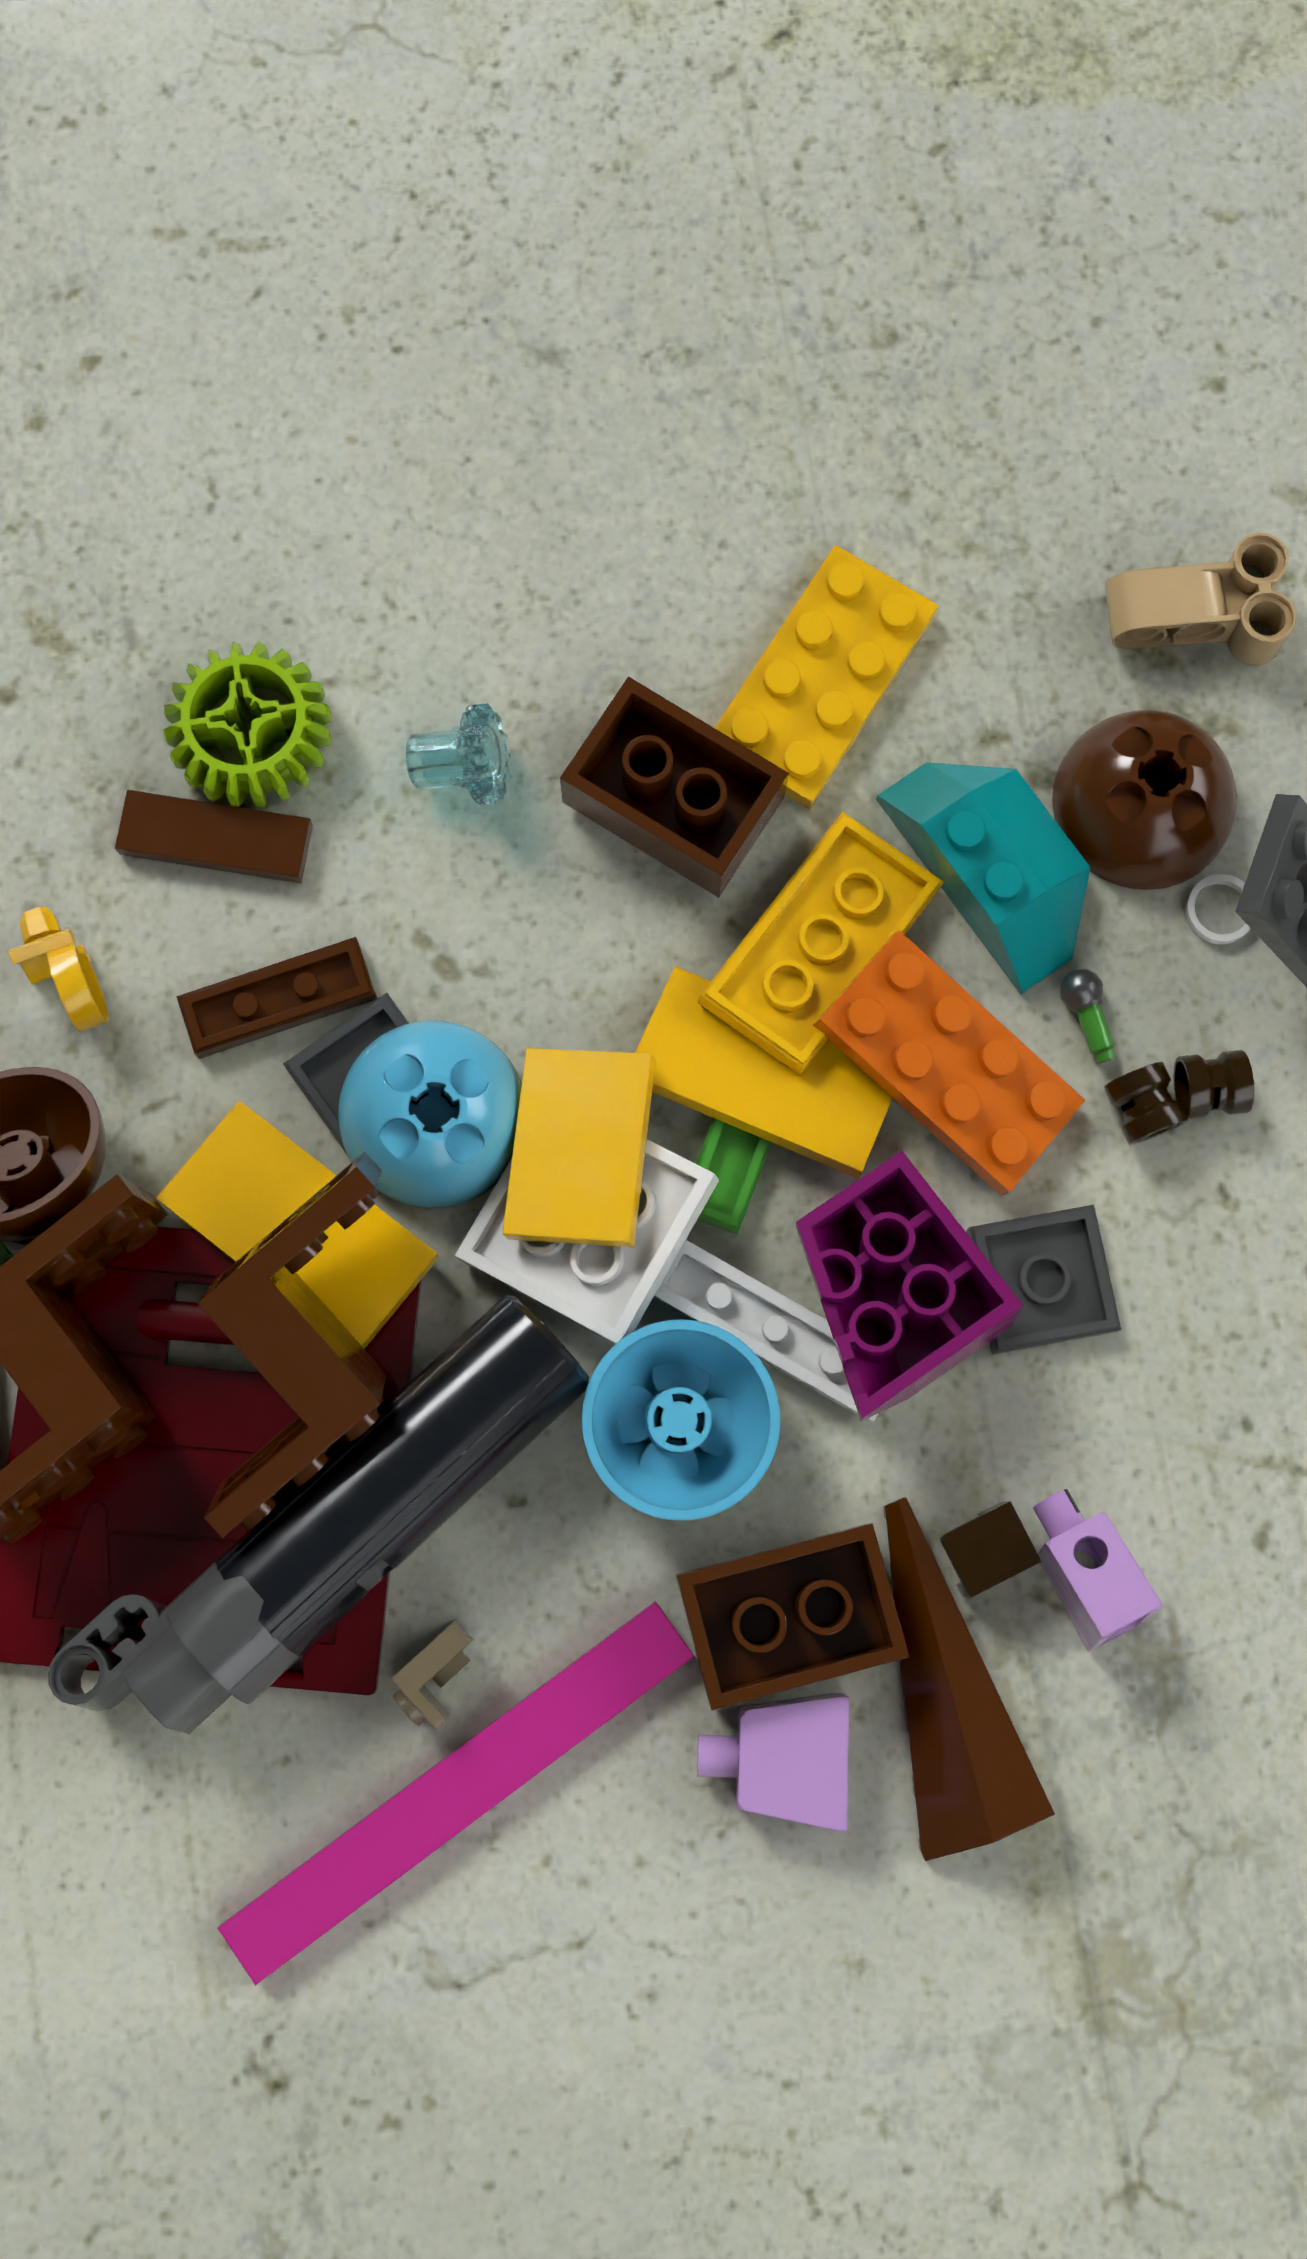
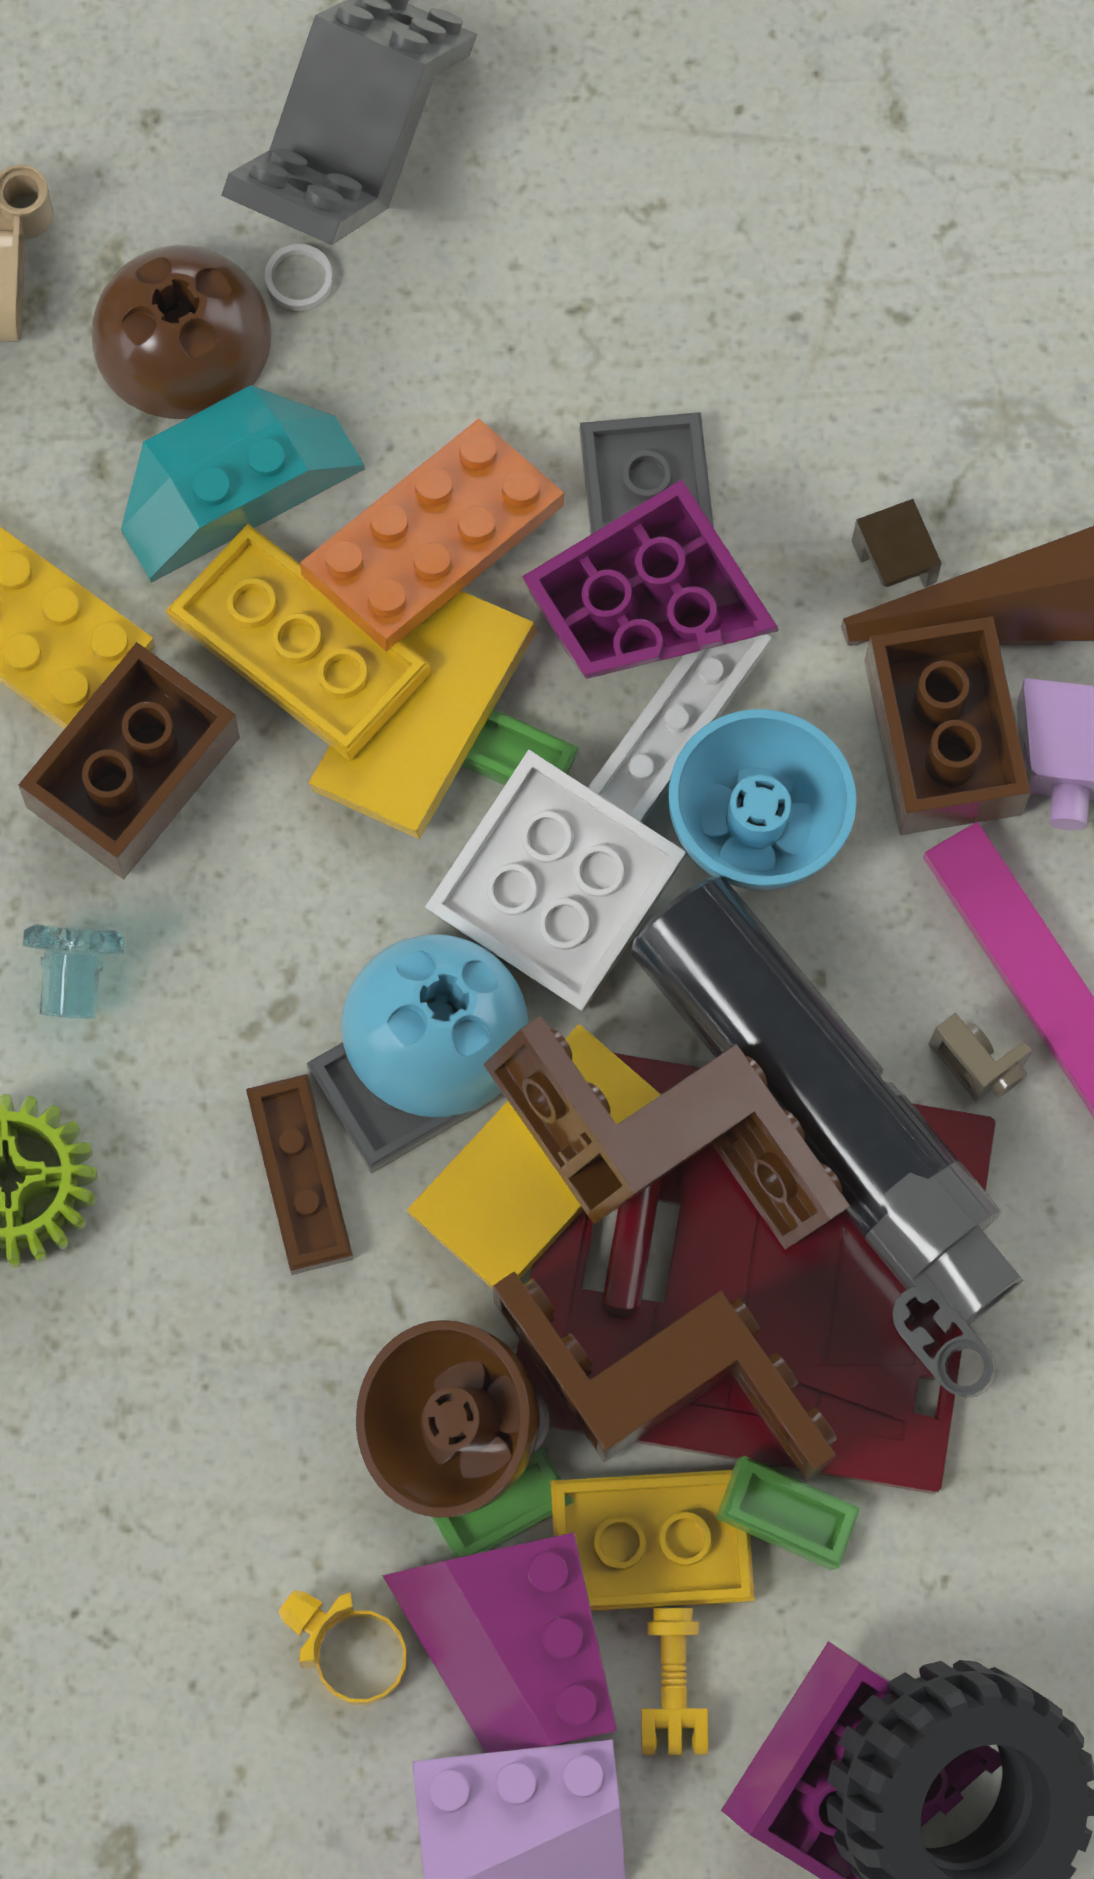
camera: 85 degrees left, 5 degrees down
(53, 954) = (252, 1367): yellow piece -> none
(214, 836) = (122, 1227): reddish brown tile -> none
(579, 1147) = (488, 876): yellow tile -> none
(1083, 994) = (372, 409): piece -> none
(1101, 1599) = (926, 456): lavender torso -> none
(1146, 1103) = (488, 363): dark brown wheel -> none
(1214, 1083) = (475, 301): dark brown wheel -> none

